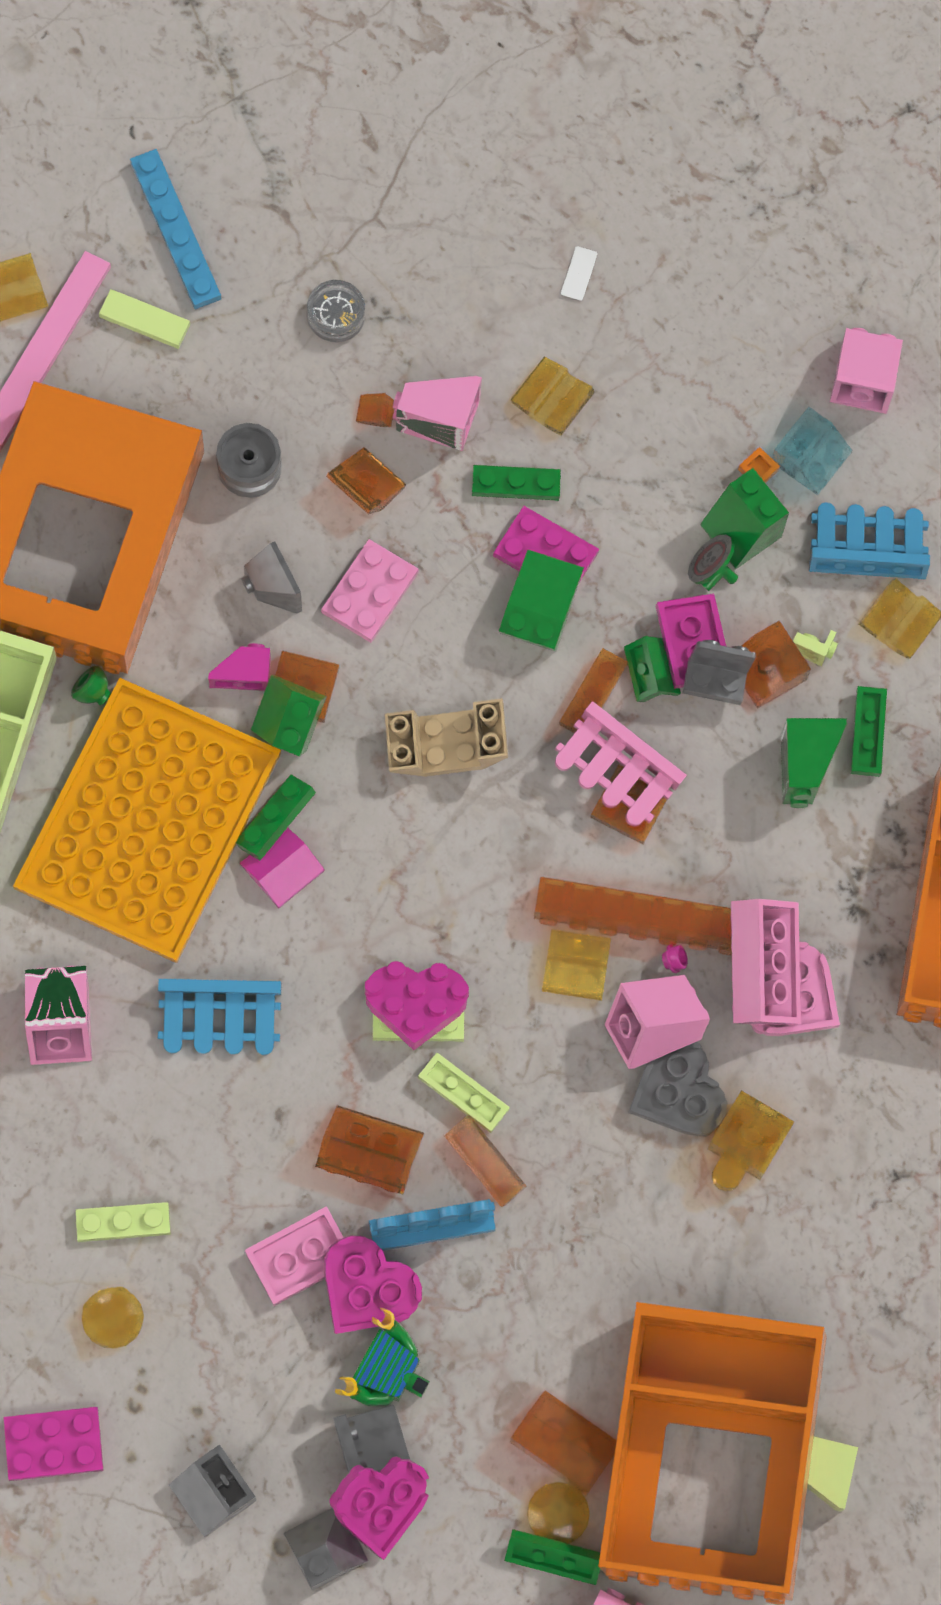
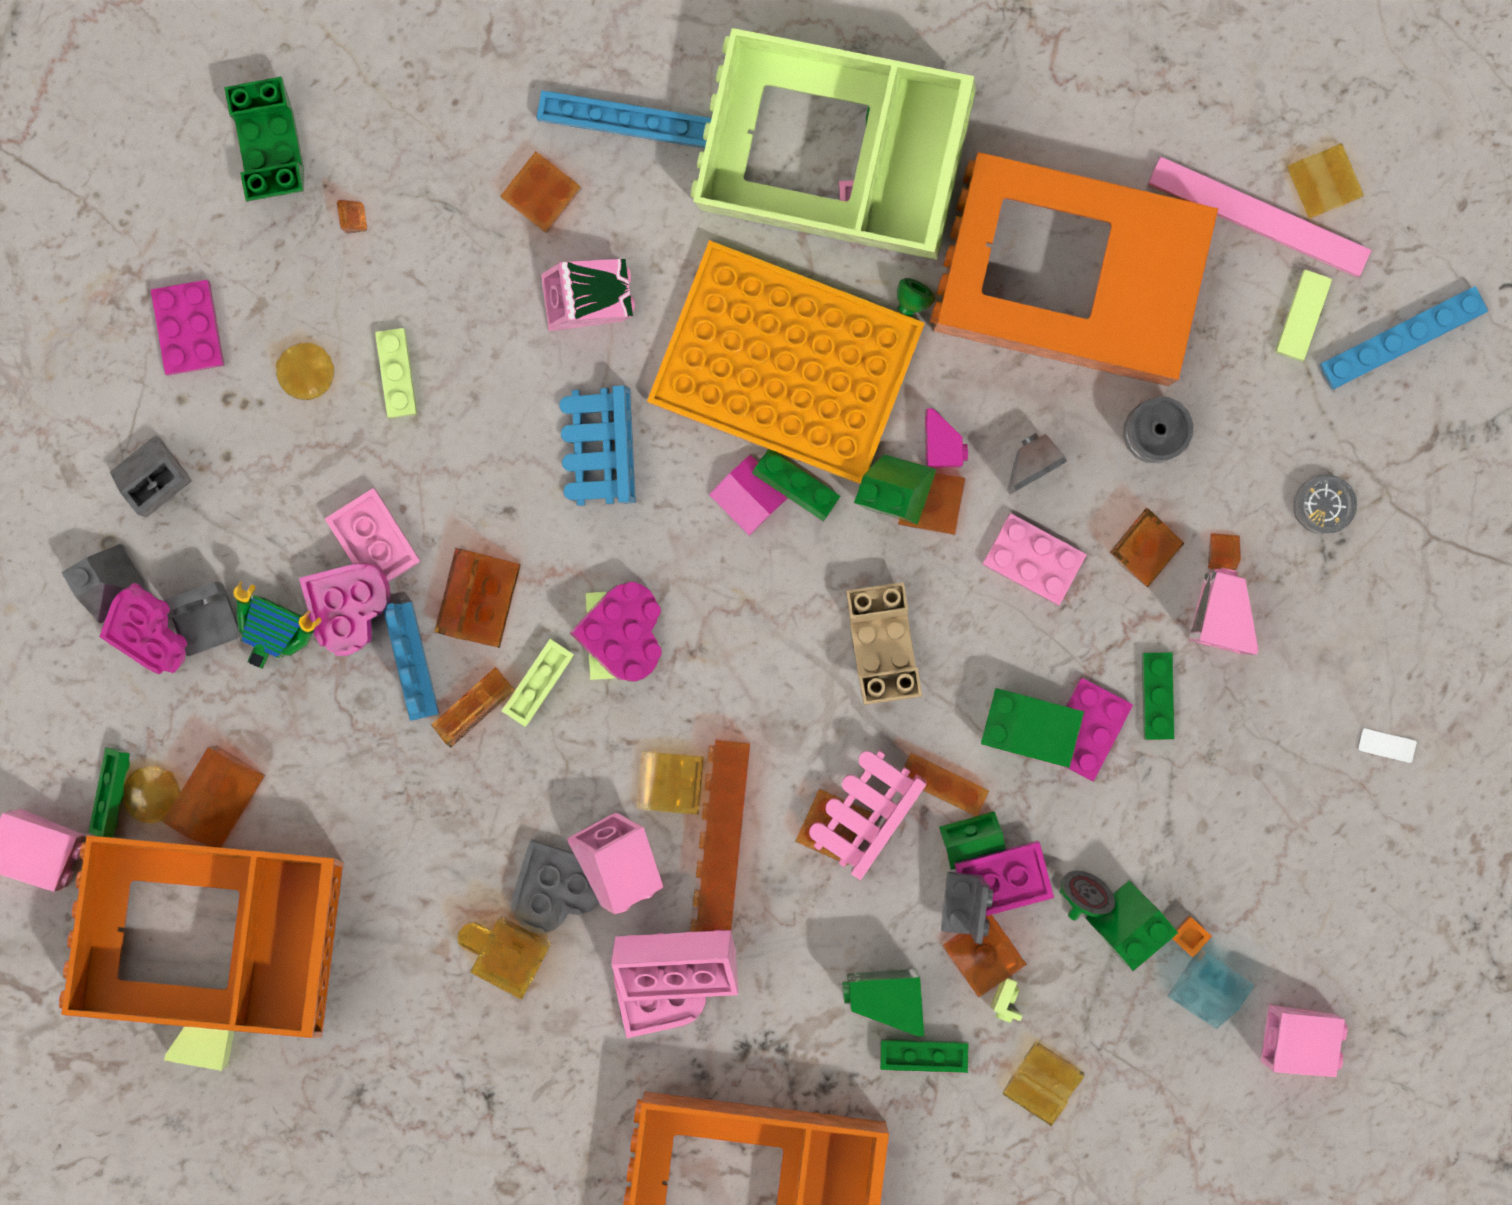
camera: 90 degrees right, 15 degrees up
(552, 396) = (1252, 726): clear yellow slope -> none
(675, 958) = (682, 876): dark pink plate -> none
(869, 559) = (1101, 1035): dark azure fence -> none

